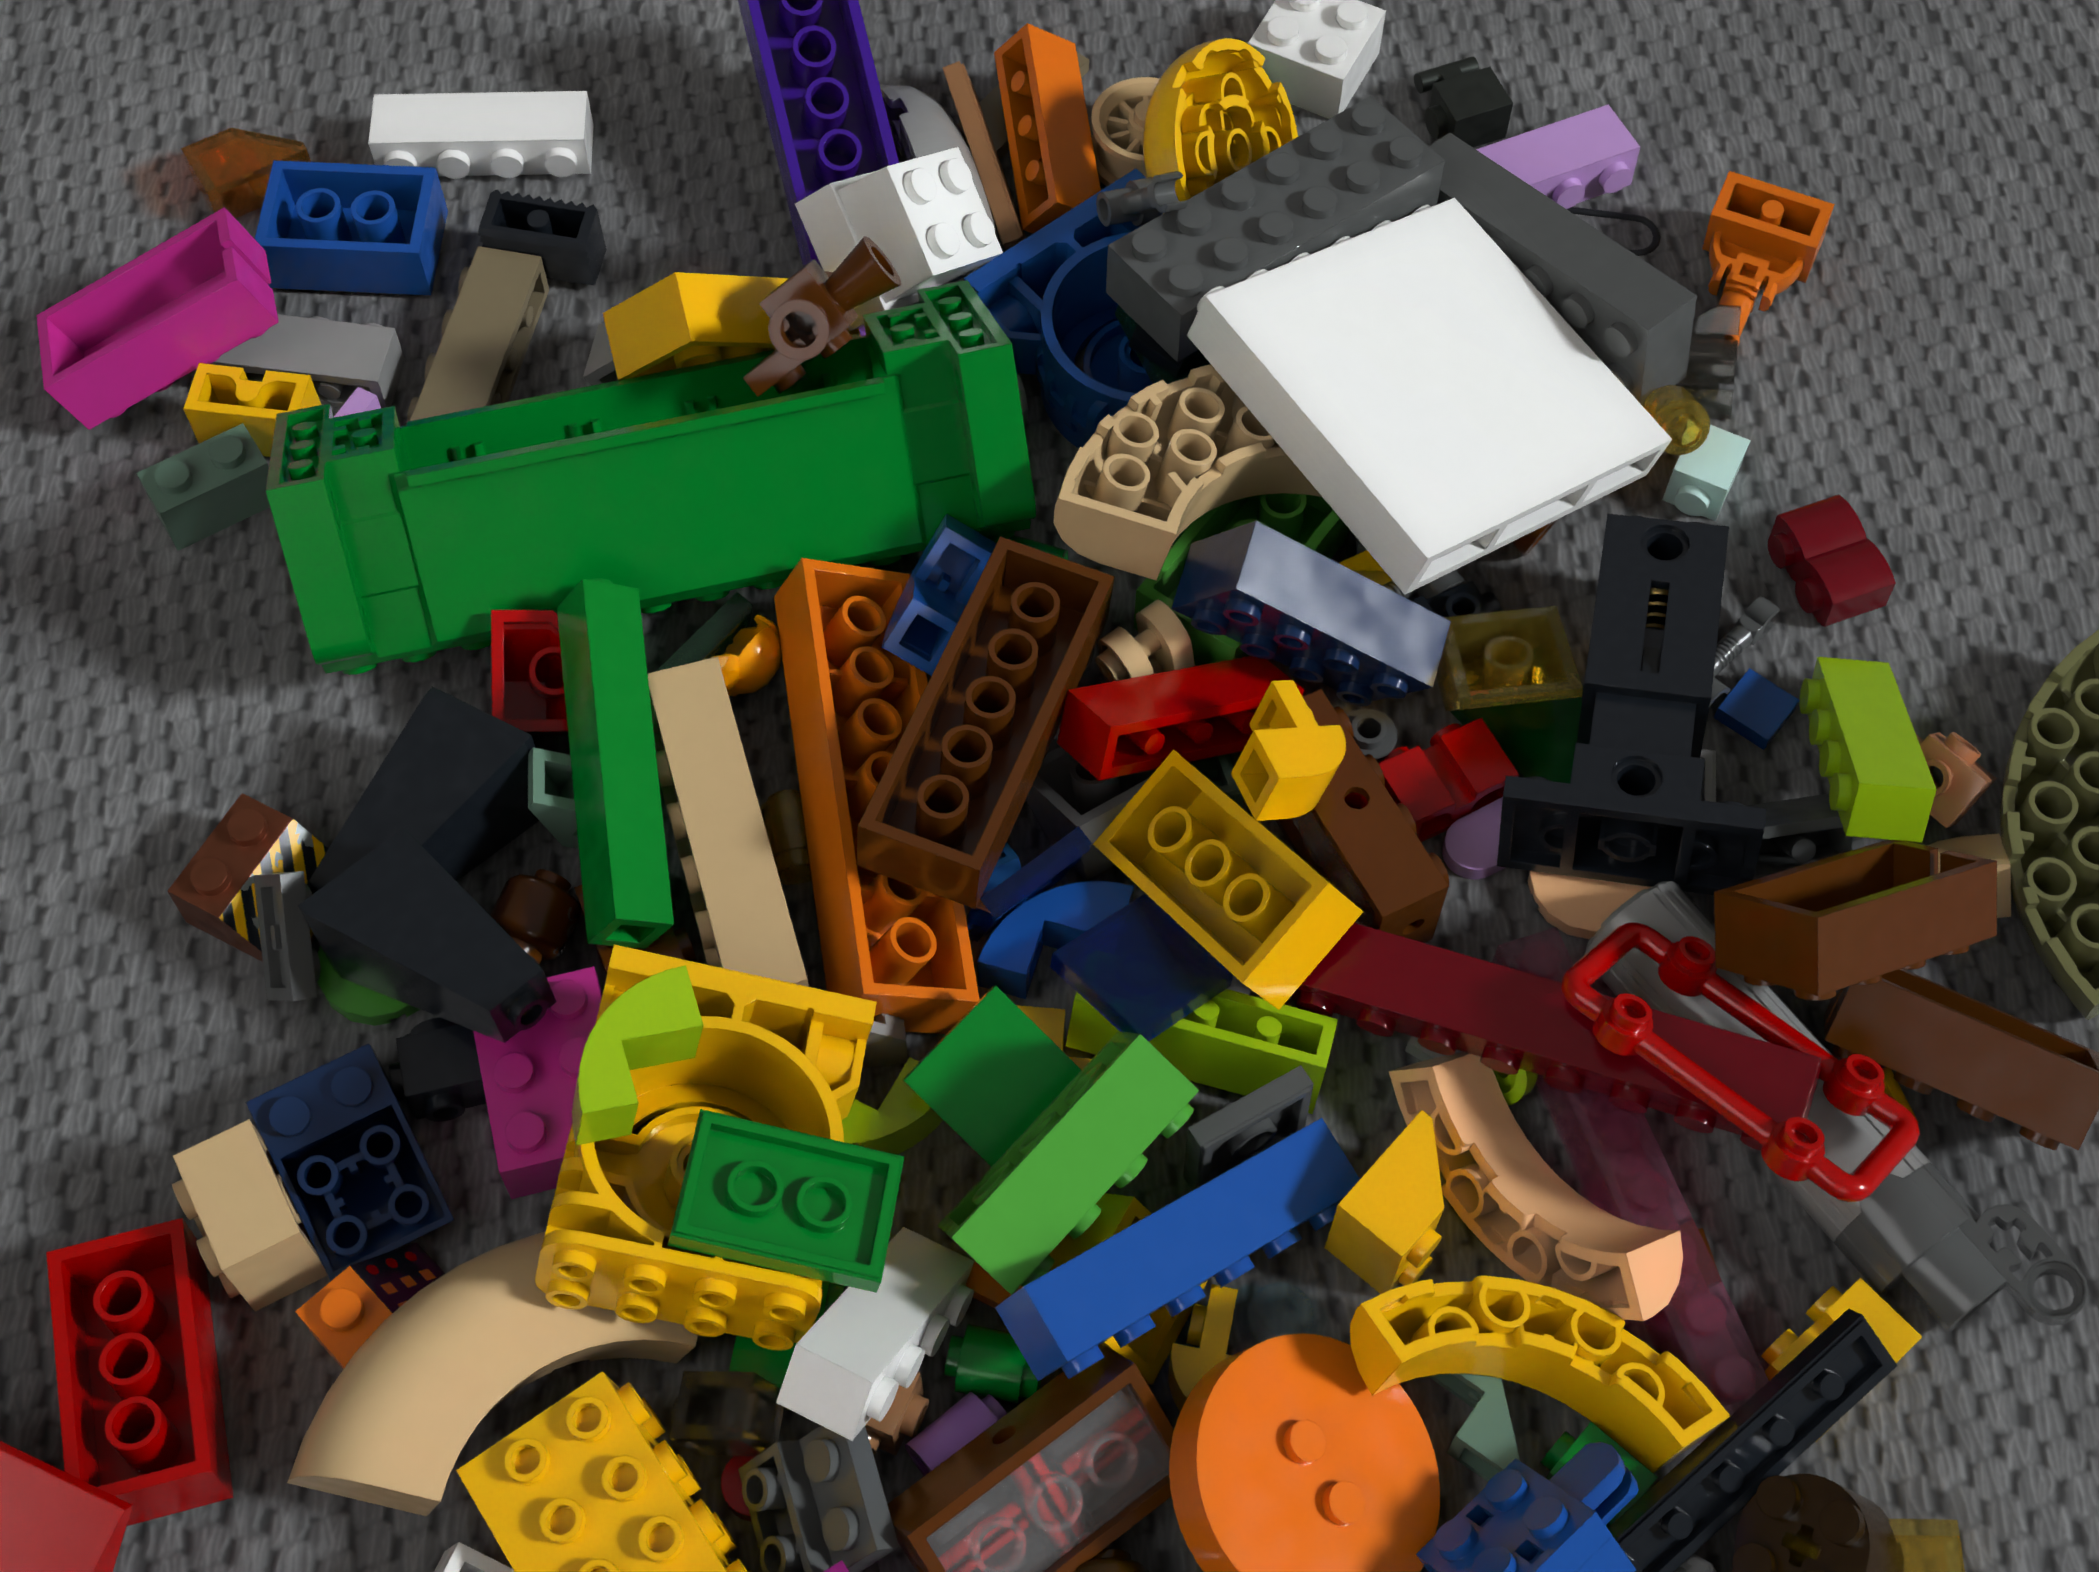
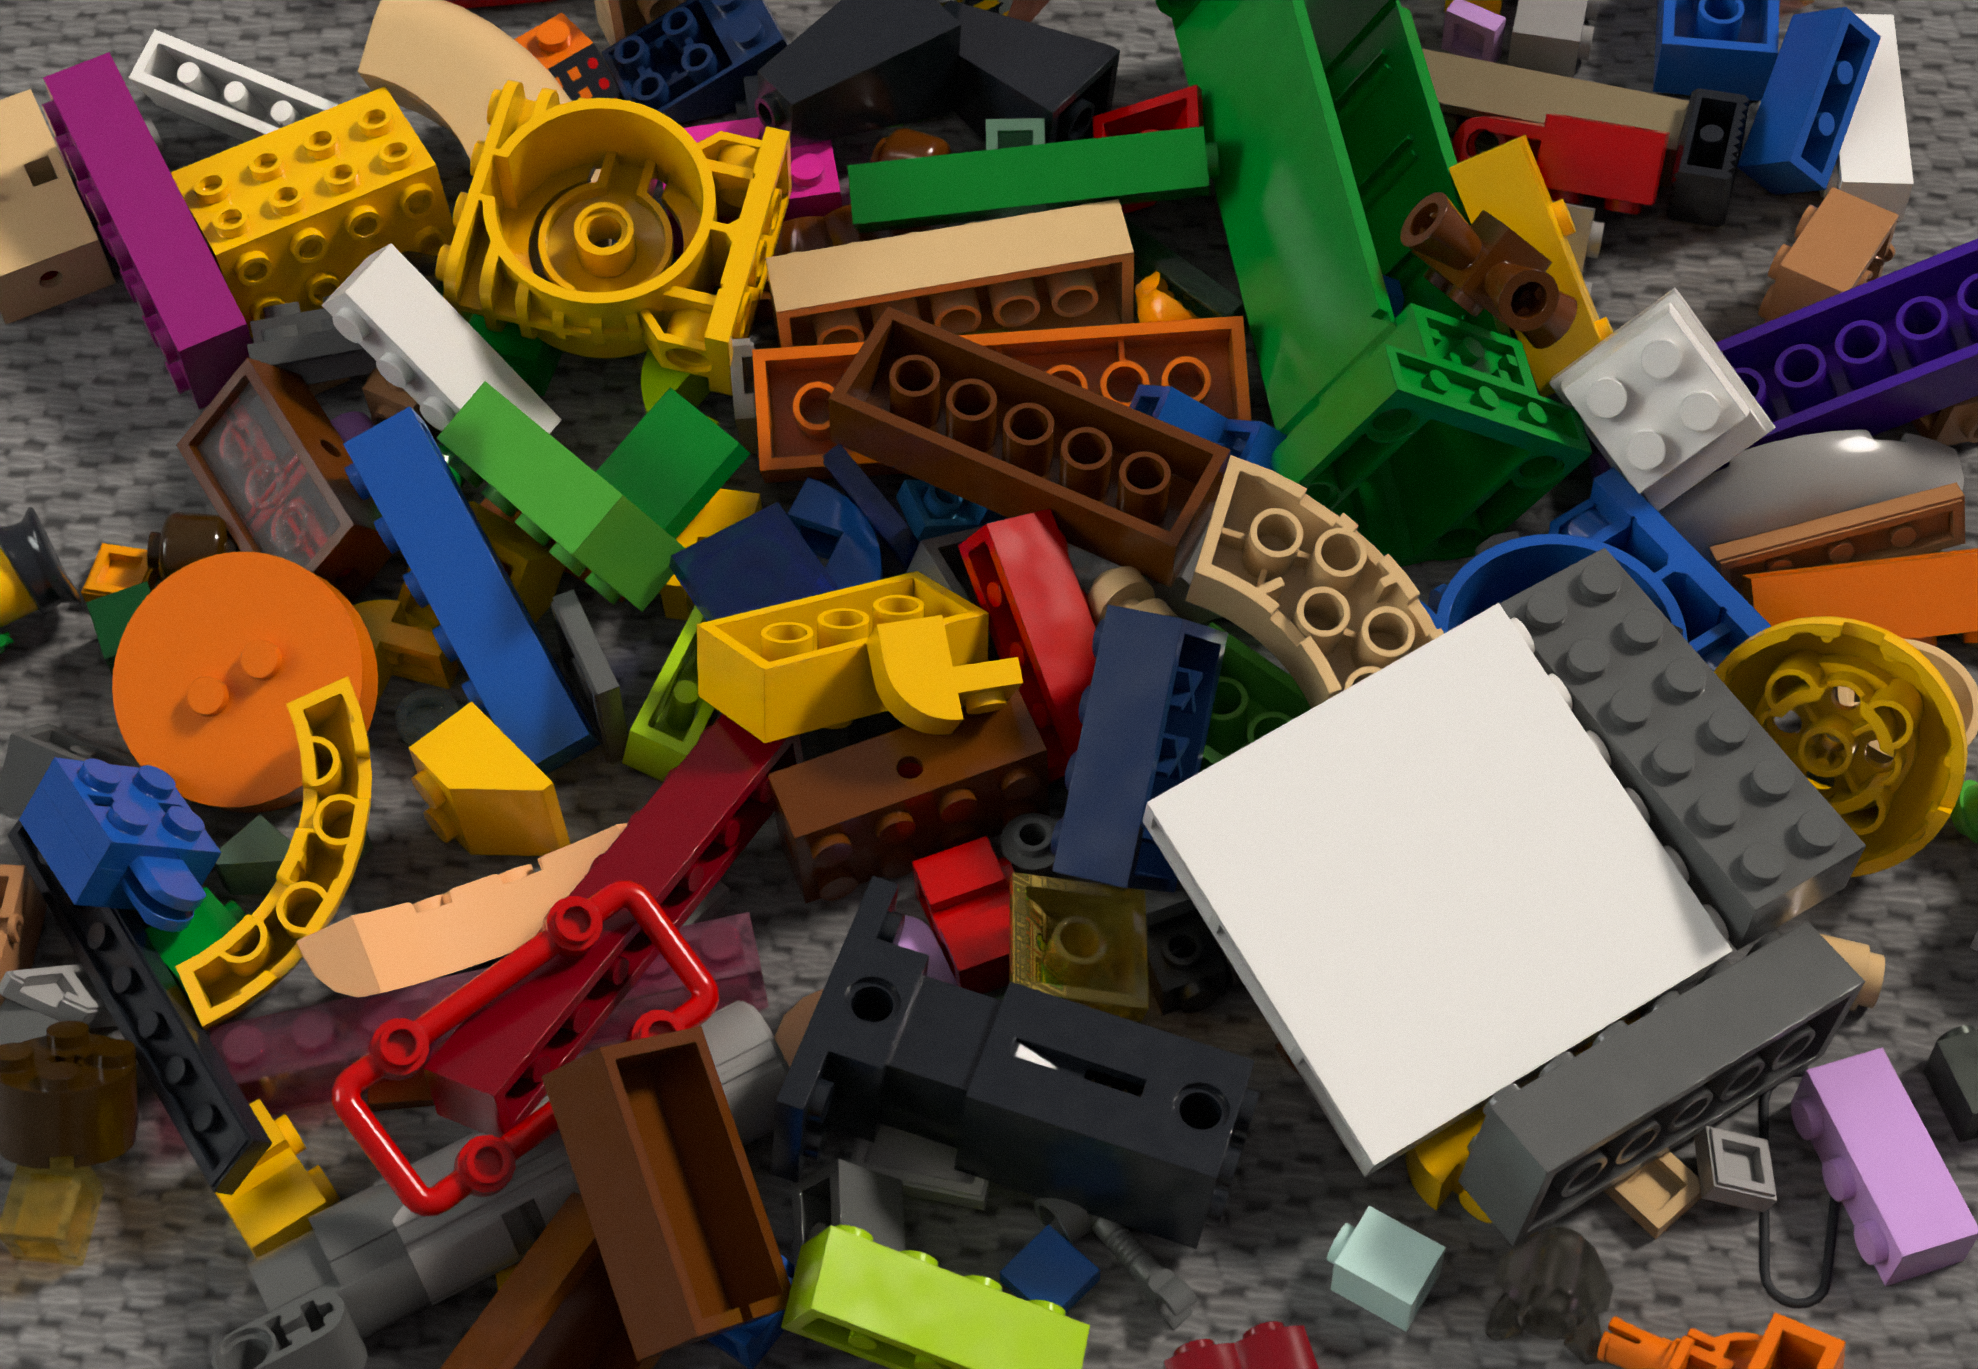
camera: 100 degrees right, 5 degrees down
(486, 148) = (1809, 101): none -> blue brick
(556, 315) = (1581, 157): none -> red brick
(640, 1029) = (643, 97): lime brick -> none
(700, 152) = (1834, 251): none -> medium nougat brick
(787, 1201) = (524, 247): green tile -> none
(1140, 200) = (1710, 604): dark grey brick -> none
(1680, 417) = (1424, 1199): clear yellow brick -> none

